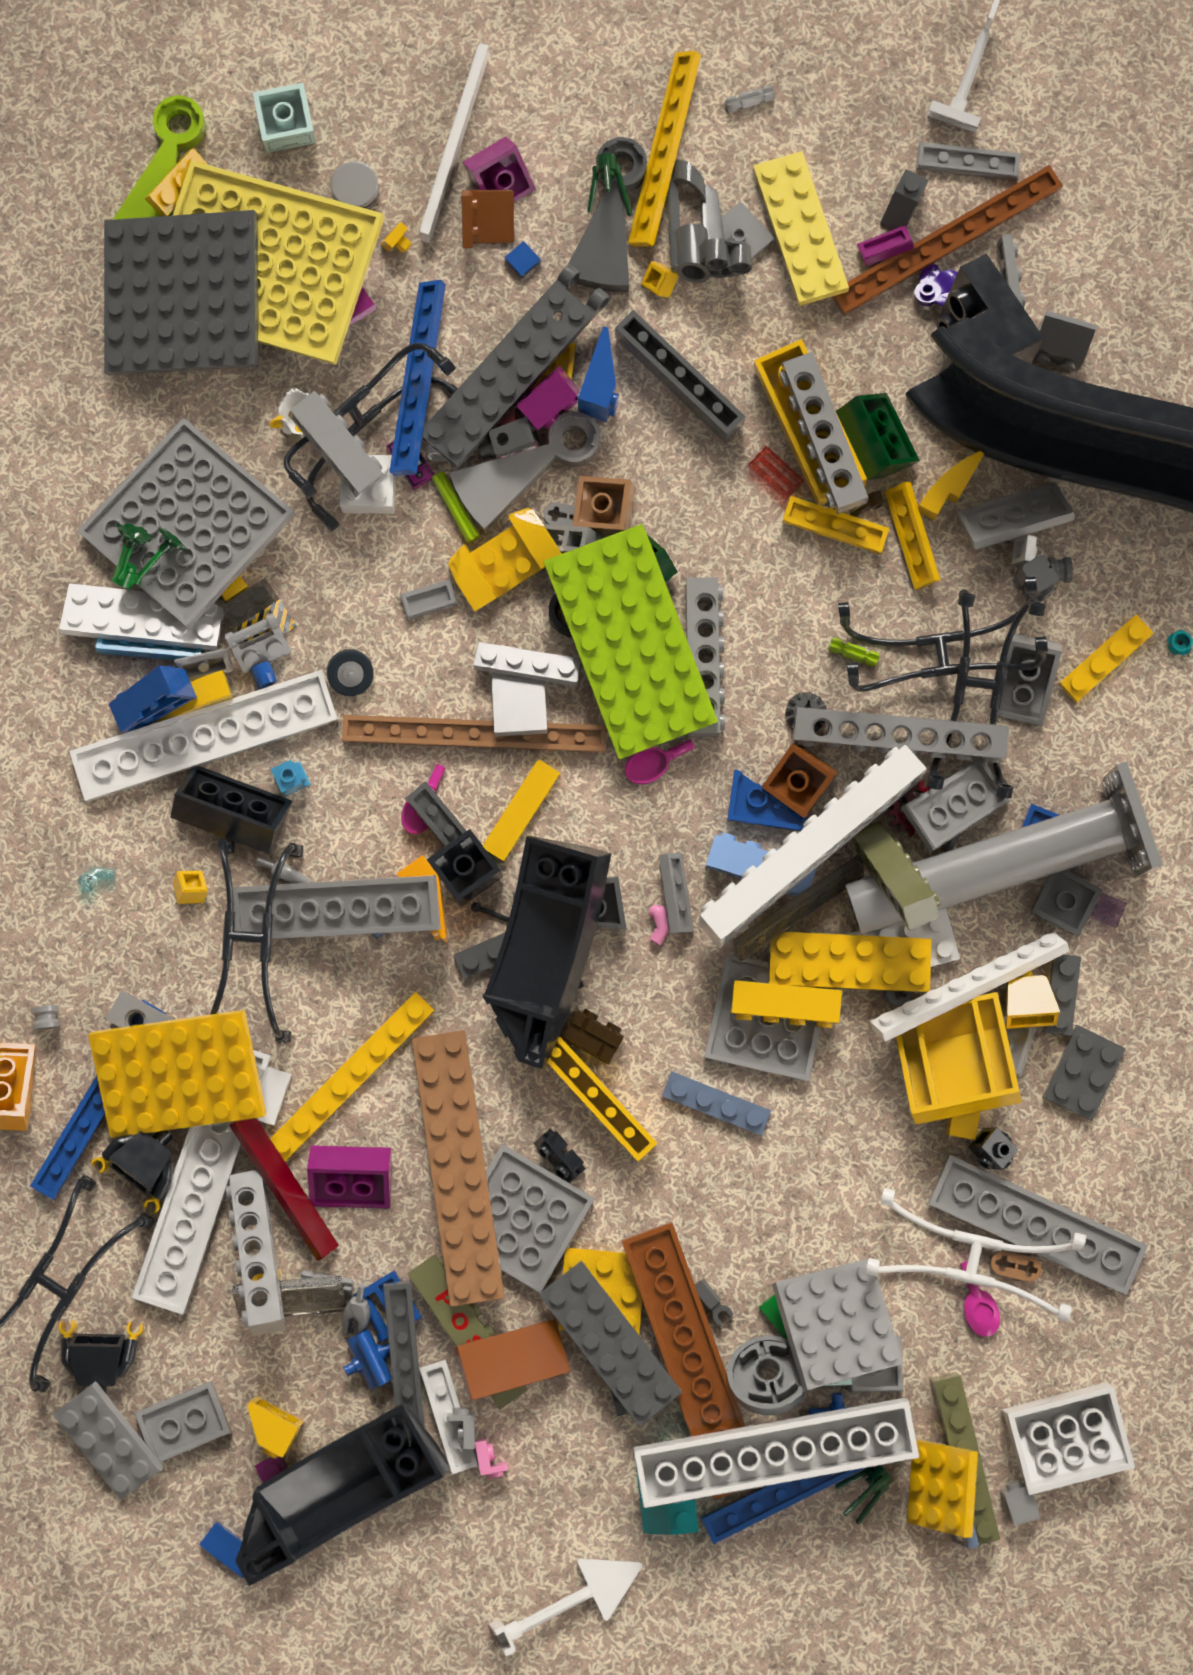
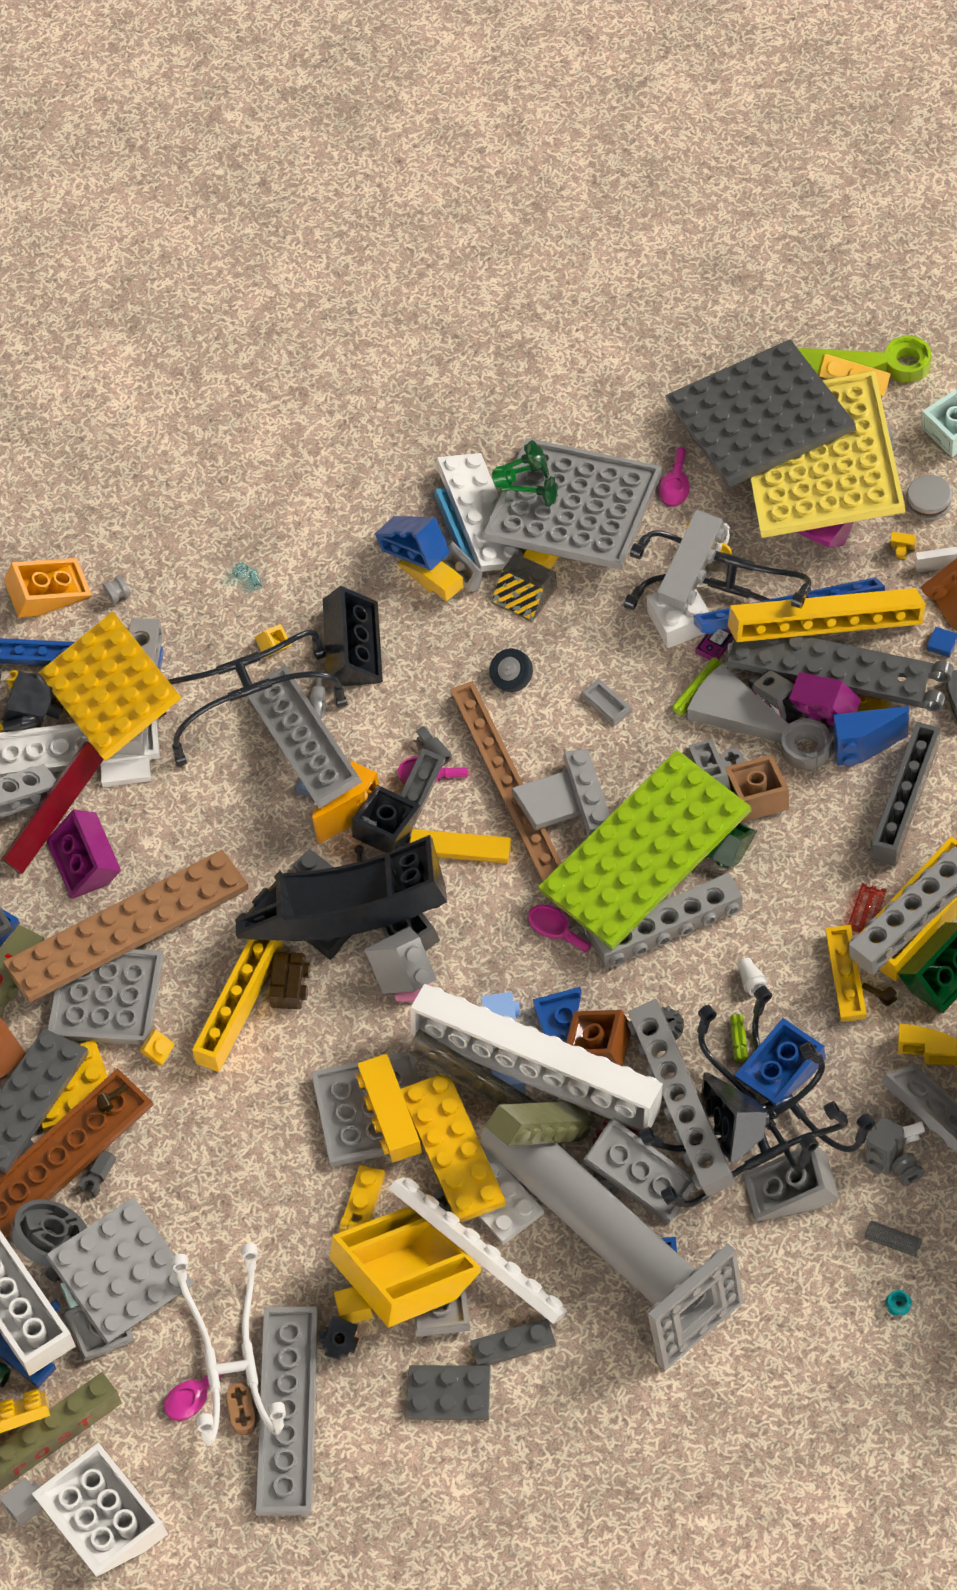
camera: 75 degrees right, 25 degrees down
(203, 736) = (404, 596): white plate -> none
(205, 414) = (675, 484): none -> dark pink piece
(259, 649) = (497, 601): light grey plate -> none
(263, 675) = (477, 613): blue hose -> none
(290, 777) = (399, 667): dark azure window -> none
(351, 1075) = (170, 821): yellow plate -> none
(397, 785) = (433, 744): none -> dark grey bar
(457, 341) = (826, 615): none -> yellow brick
(503, 559) = (659, 733): yellow piece -> none
(566, 1165) = (168, 1009): black hinge -> none
(604, 1192) = (156, 1047): none -> yellow plate
(639, 923) = (400, 963): none -> light grey slope
(655, 1269) = (104, 1100): none -> dark brown hand
(676, 893) = (458, 981): light grey plate -> none
(716, 1103) = (276, 1103): sand blue plate -> none
(798, 610) = (751, 976): none -> white cone
(856, 1066) = (363, 1197): none -> yellow plate
(908, 628) = (778, 1064): none -> blue slope
(912, 535) = (873, 1034): yellow plate -> none
(957, 693) = (736, 1116): none -> black wedge
(1030, 1002) = (488, 1307): torso -> none
(1066, 901) = (601, 1307): dark grey plate -> none
(1106, 658) = (848, 1247): yellow plate -> none
(1108, 910) = (610, 1346): plate -> none
(1112, 615) = (903, 1235): none -> dark grey piece

